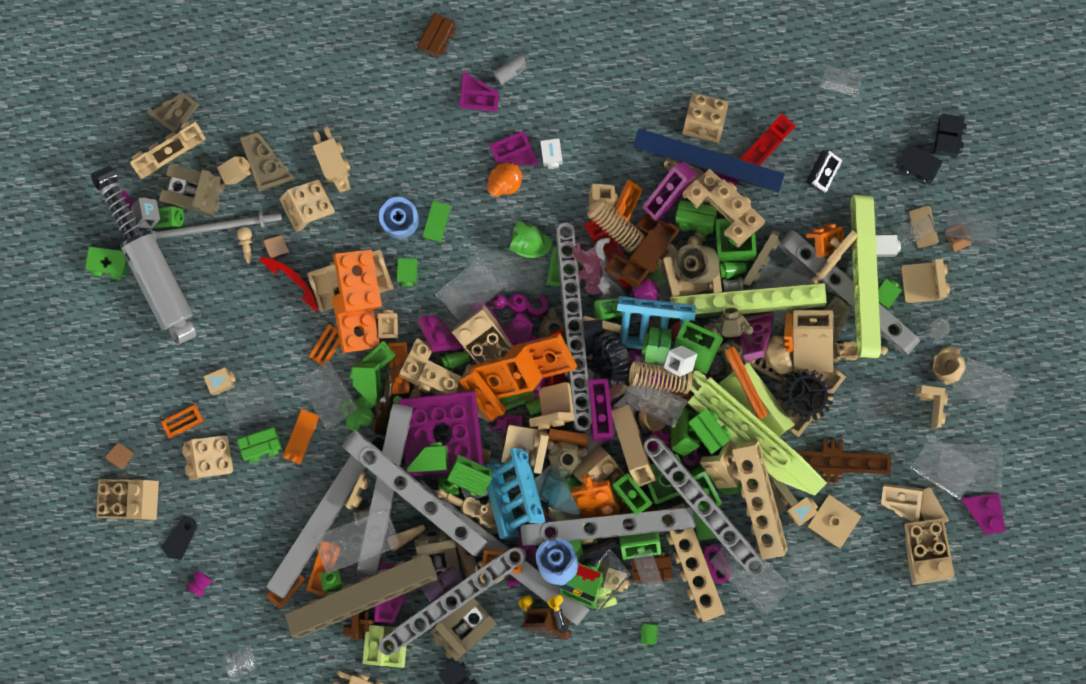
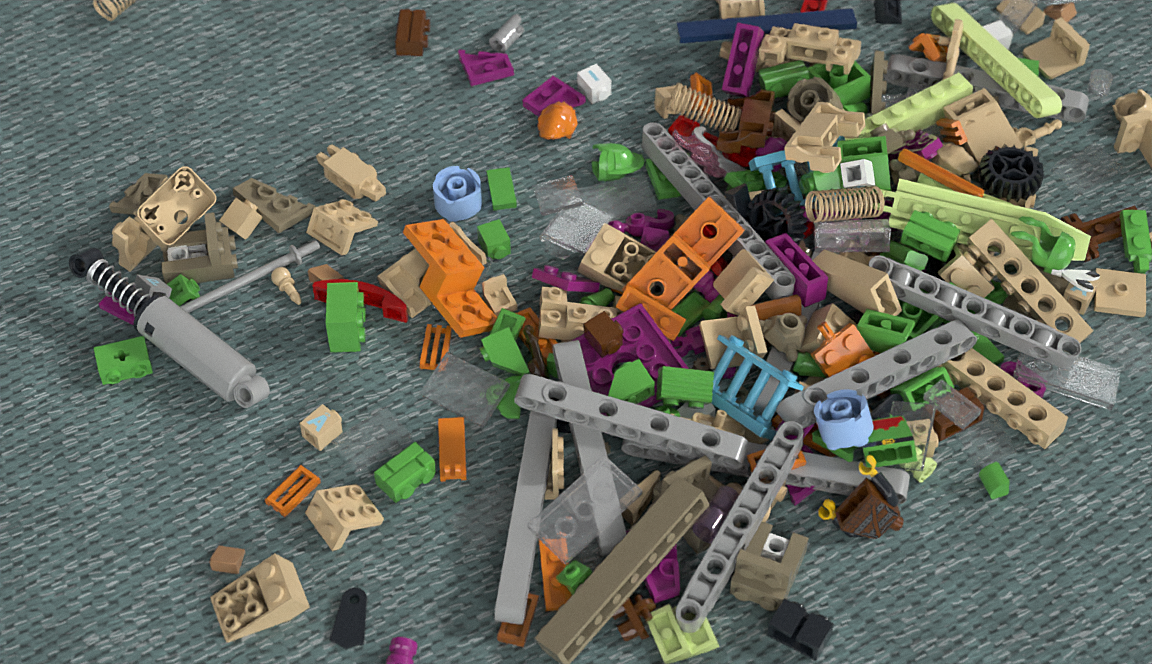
camera: 30 degrees left, 30 degrees down
(171, 167) = (193, 198): none -> tan axle
(269, 299) = (345, 317): none -> bright green brick
(433, 410) = (603, 334): none -> reddish brown brick
(471, 252) = (557, 195): none -> clear piece
(557, 495) = (803, 359): clear light blue slope -> none
(667, 314) = (819, 132): none -> tan bracket
(790, 491) = (1055, 254): none -> bright green hair
(872, 485) = (1136, 239): none -> bright green hinge

